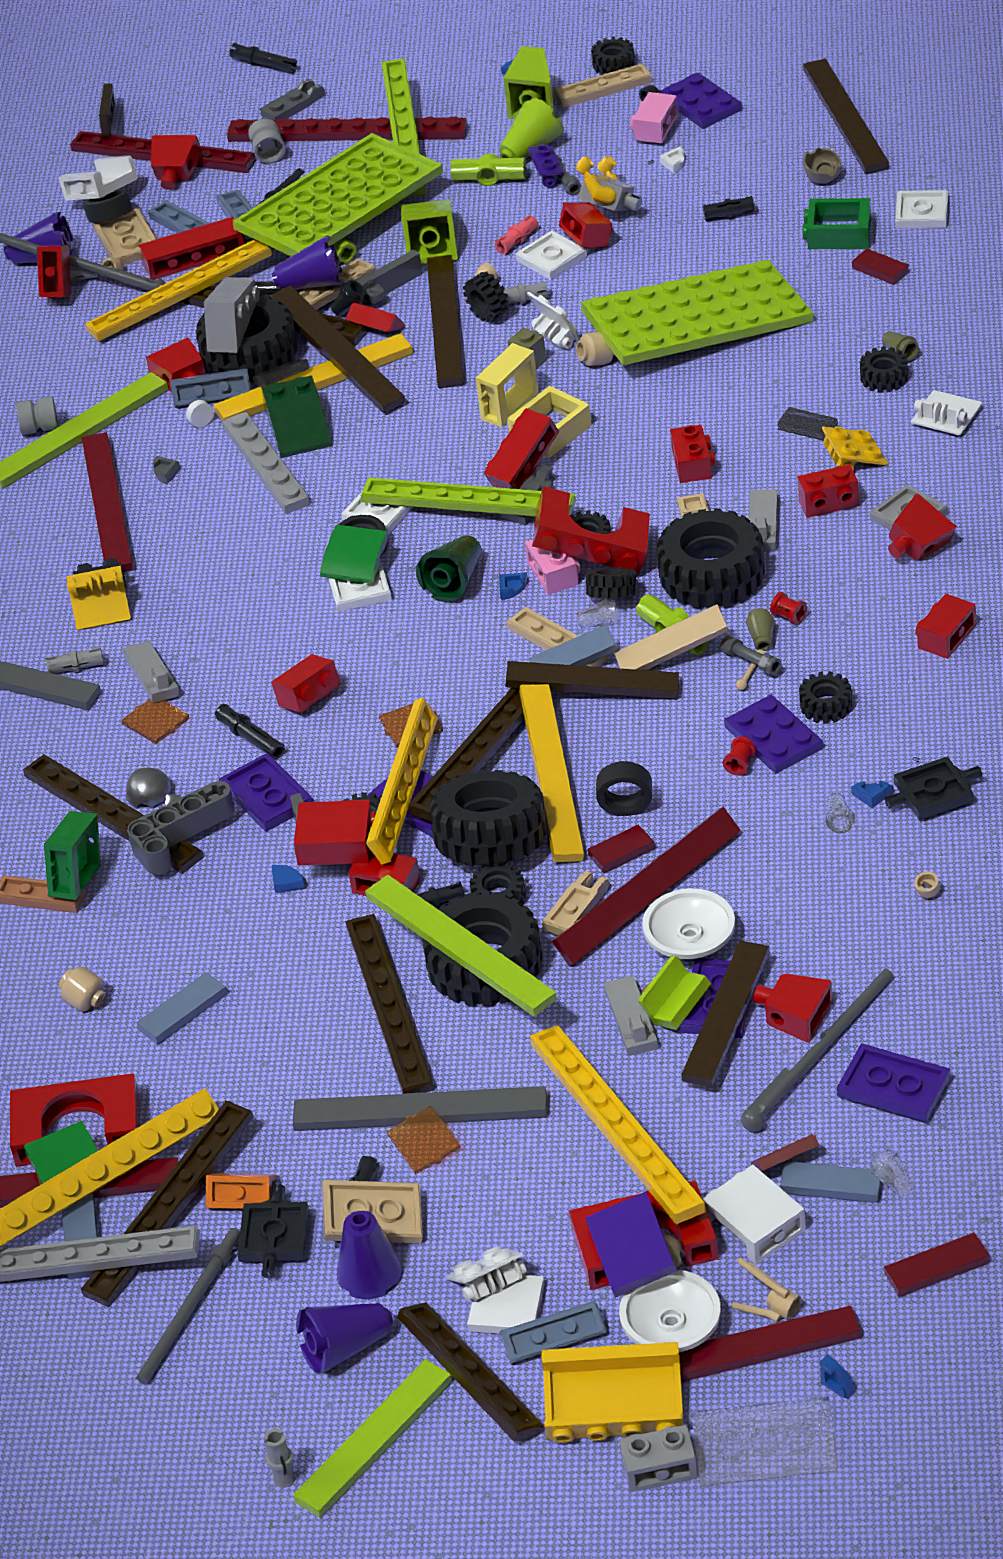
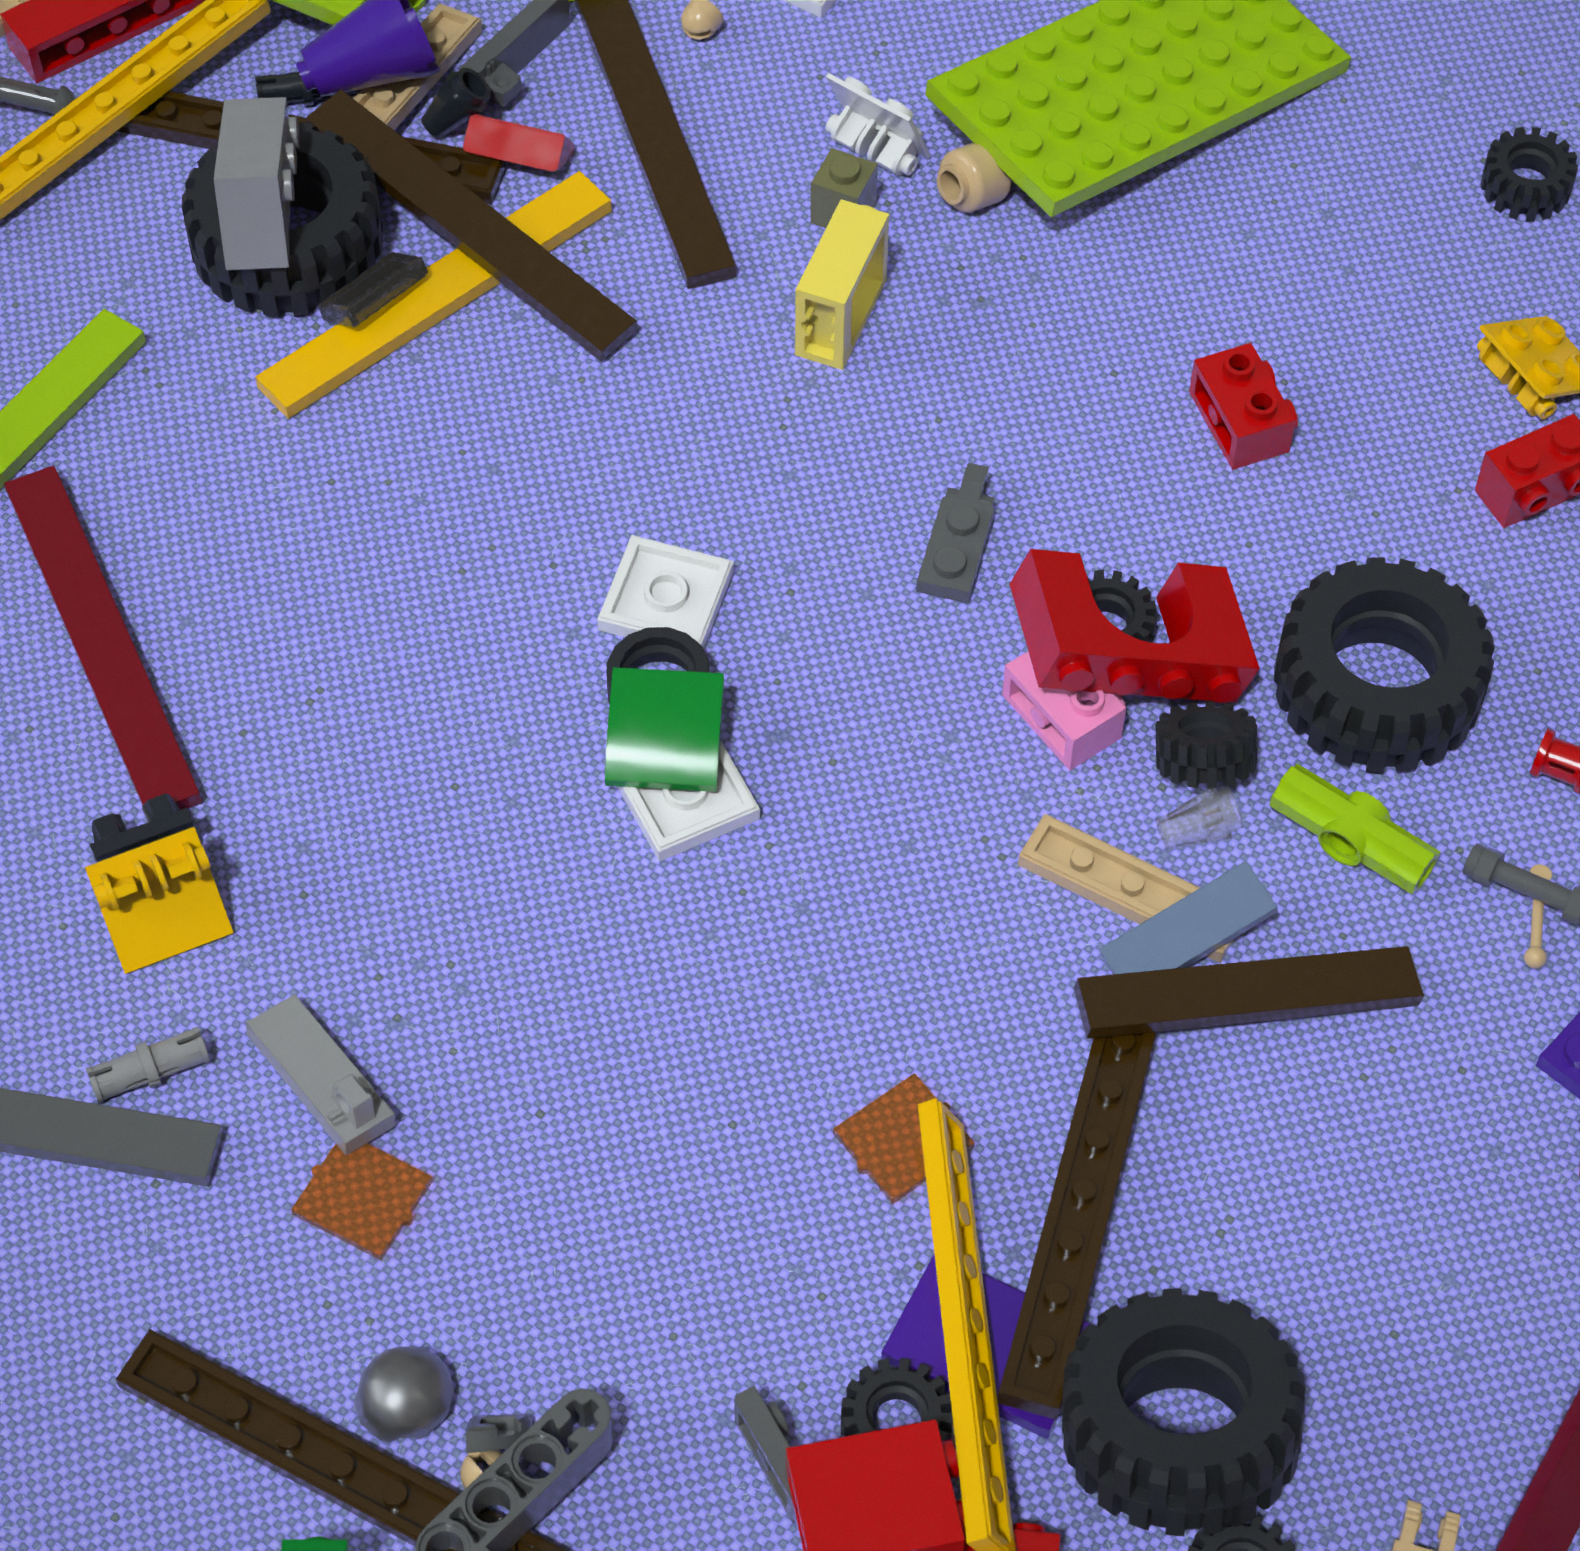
camera: 20 degrees left, 15 degrees up
(165, 469) = (197, 541): dark grey tile -> none
(176, 362) = (159, 292): red torso -> none
(199, 413) = (234, 402): white tile -> none
(210, 387) = (238, 337): sand blue tile -> none
(242, 726) = (559, 1198): black pin -> none
(264, 791) = (658, 1365): dark purple tile -> none
(265, 463) = (402, 506): light grey plate -> none
(296, 416) = (435, 393): dark green slope -> none
(306, 683) = (667, 1075): red brick -> none
(449, 568) = (872, 742): dark green cone -> none
(453, 496) = (831, 561): lime tile -> none
(485, 296) = (728, 78): black tyre -> none
(512, 584) = (993, 757): blue tile -> none
(520, 295) = (783, 58): light grey pin -> none
(521, 450) = (923, 443): red brick -> none
(551, 773) = (1249, 1242): yellow tile -> none
(576, 412) = (944, 400): light yellow window -> none
(621, 848) = (1449, 1421): dark red tile -> none
(624, 804) = (1422, 1279): black tyre -> none
(673, 640) = (1382, 881): tan tile -> none
(691, 504) = (1283, 528): tan tile -> none
(760, 627) = (1529, 818): olive cone -> none
(764, 515) = (1424, 528): light grey hinge -> none
(805, 423) = (1429, 309): clear smoke tile -> none
(905, 343) = (1540, 111): olive cone -> none

